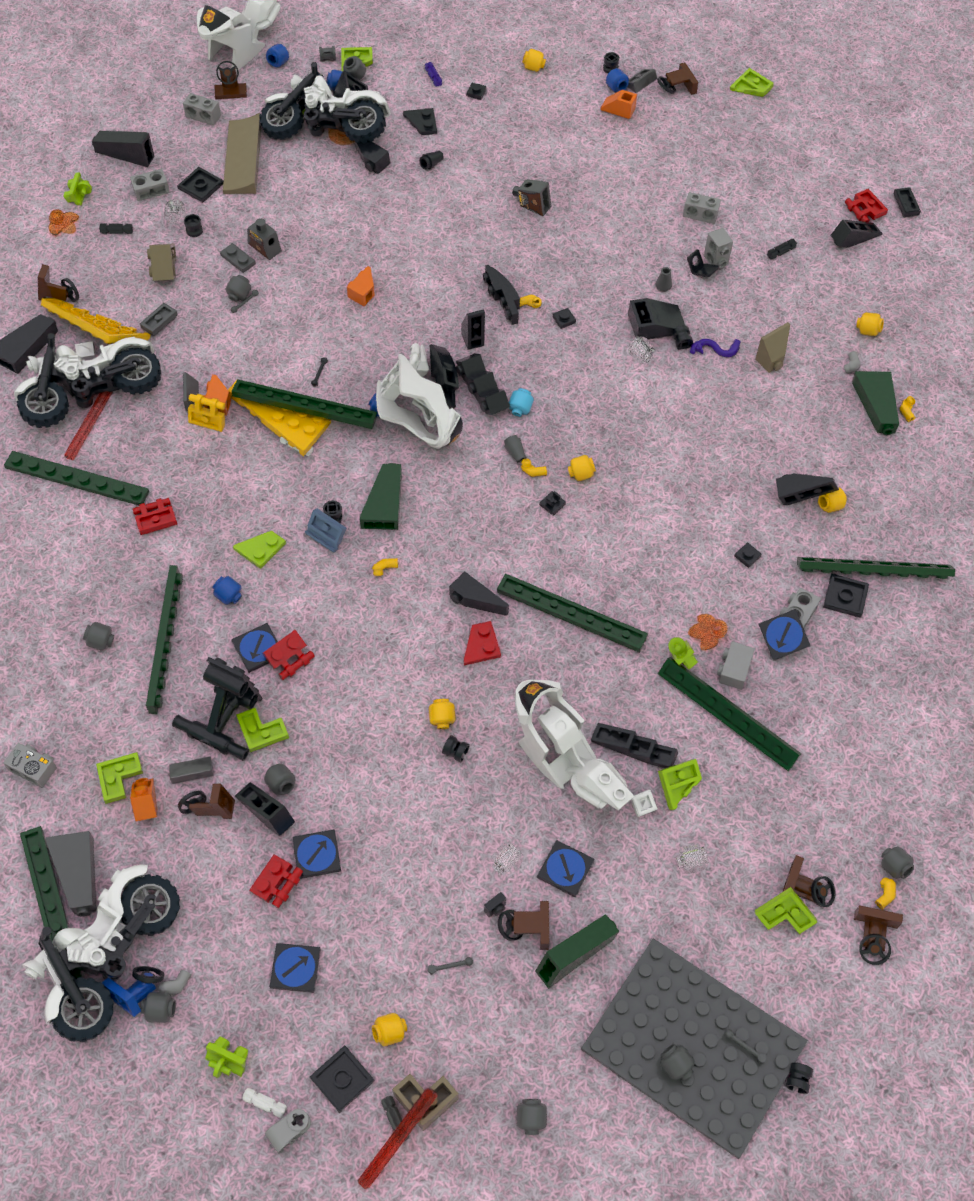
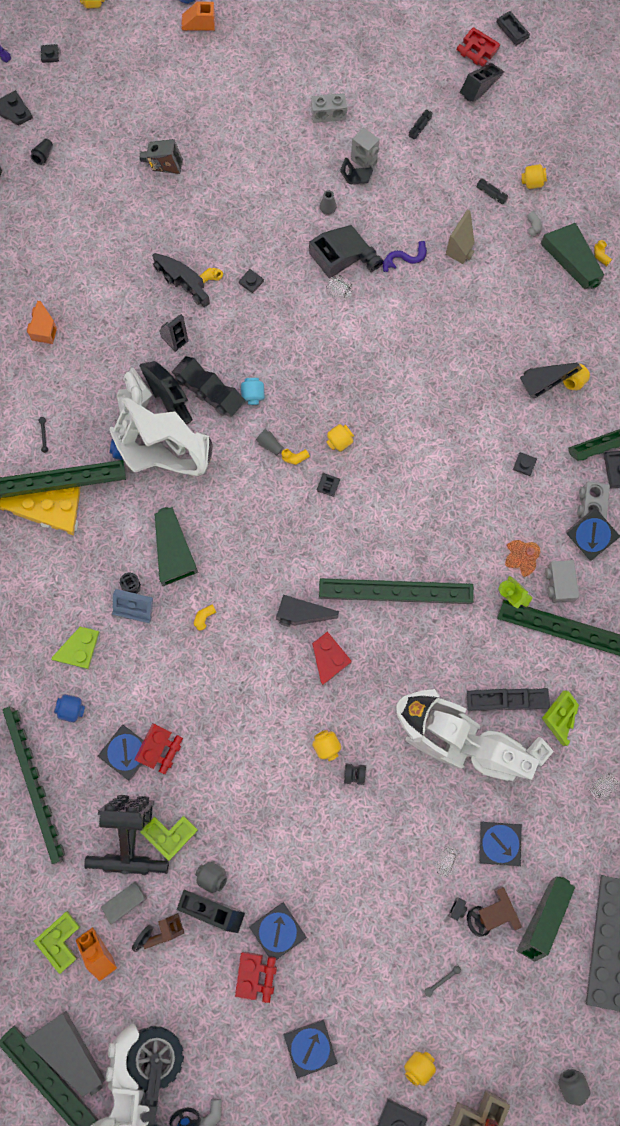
camera: 25 degrees left, 15 degrees up
(824, 323) = (492, 191): none -> black axle

